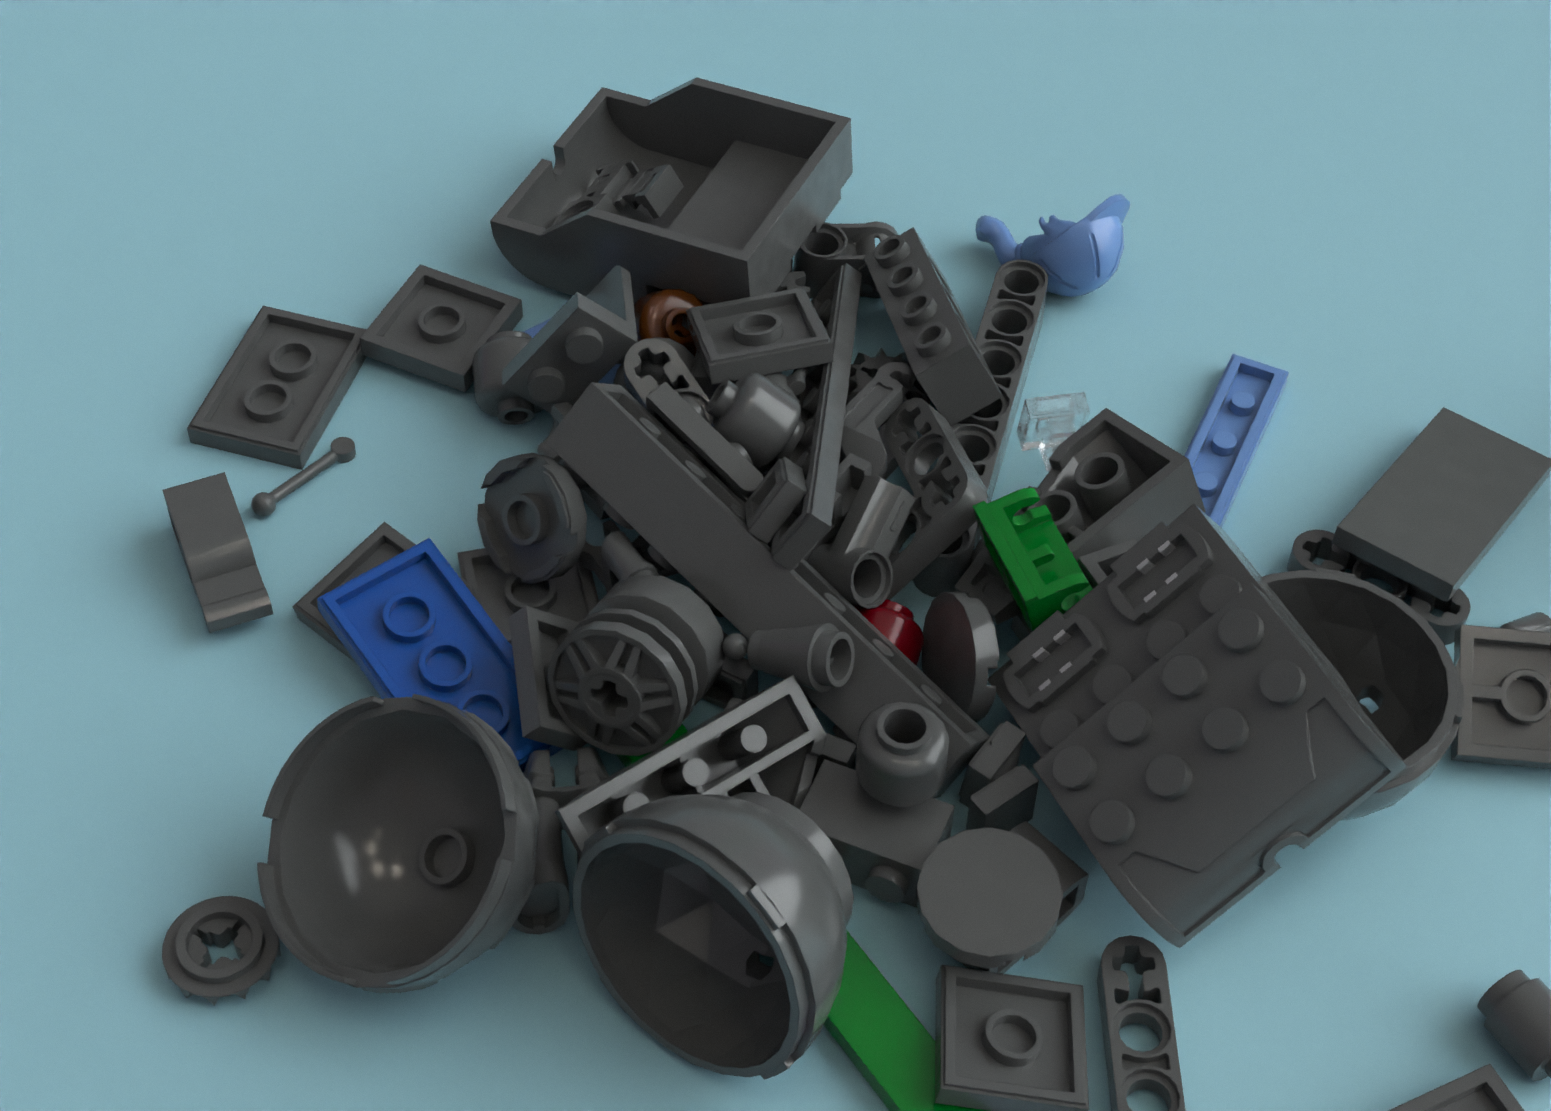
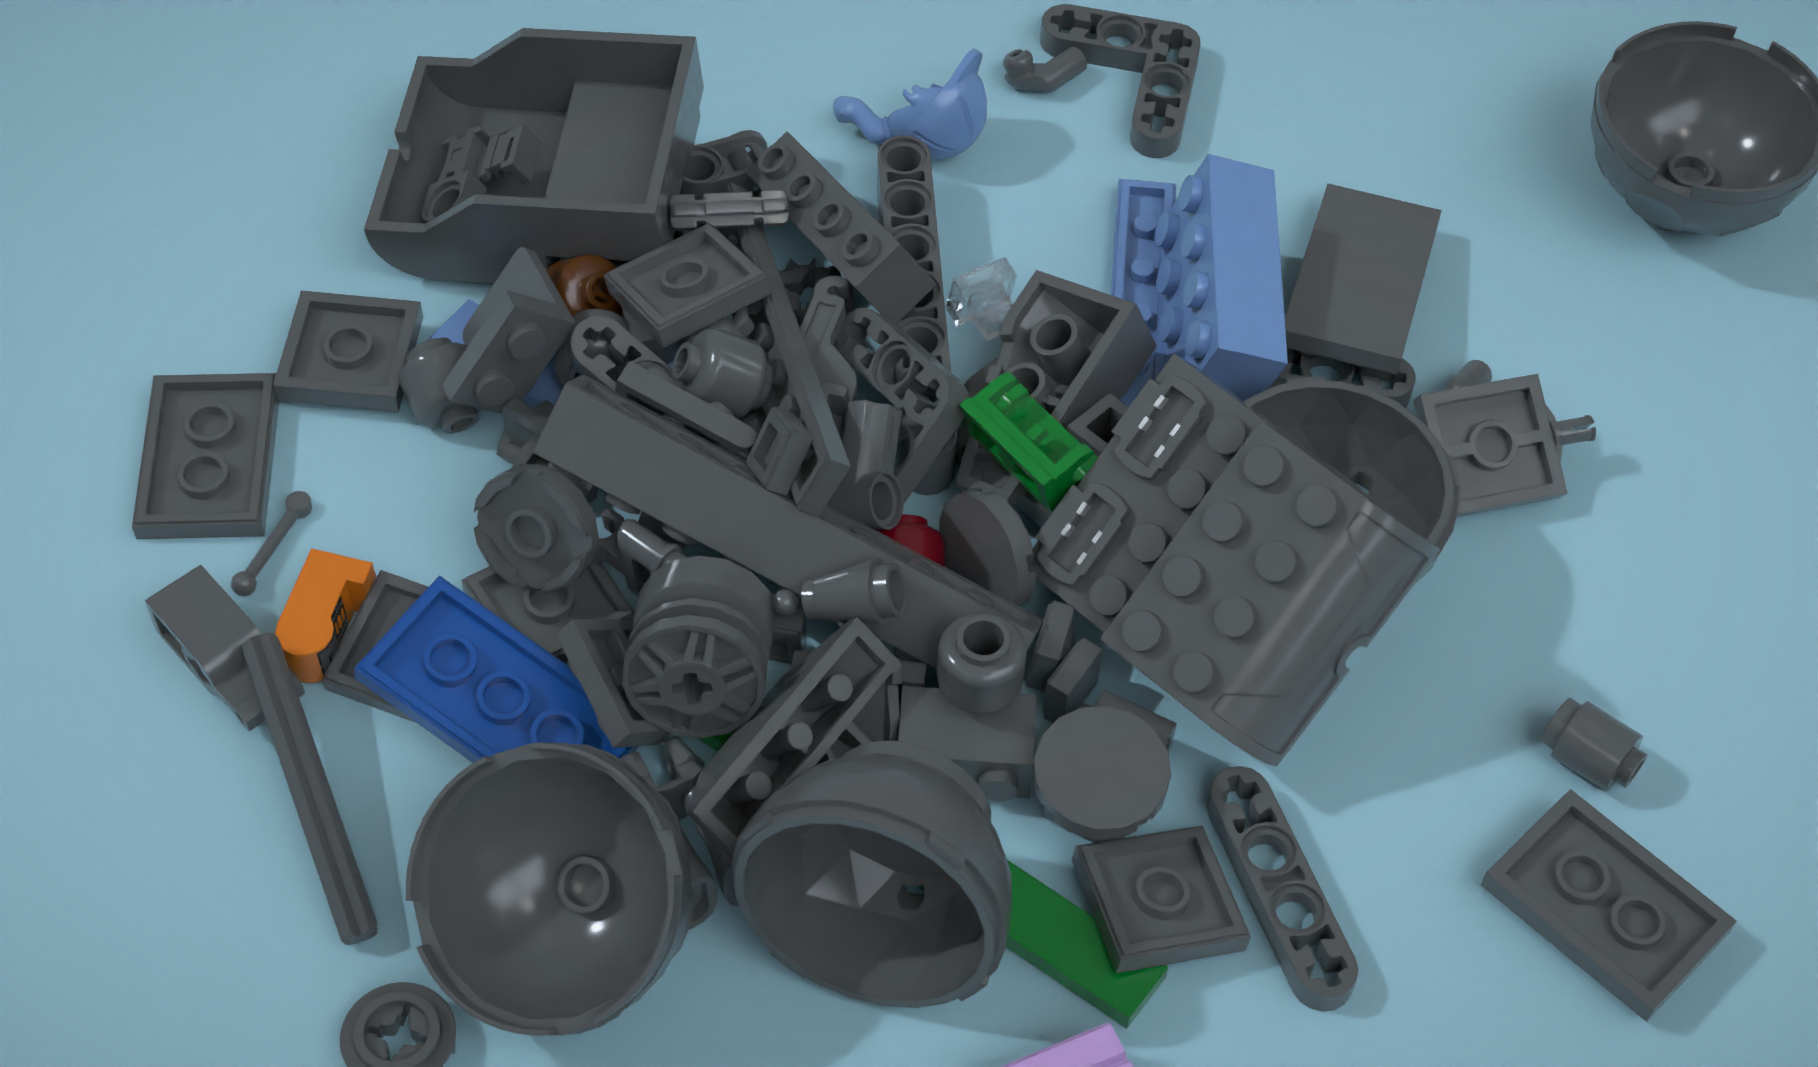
camera: 20 degrees left, 5 degrees up
(235, 700) = (310, 789): none -> dark grey axle
(315, 544) = (321, 610): none -> orange leg
(827, 281) = (728, 210): none -> dark grey axle
(1194, 246) = (1043, 77): none -> dark grey arm
(1295, 458) = (1224, 276): none -> medium blue piece
(1303, 252) = (1146, 55): none -> dark grey beam

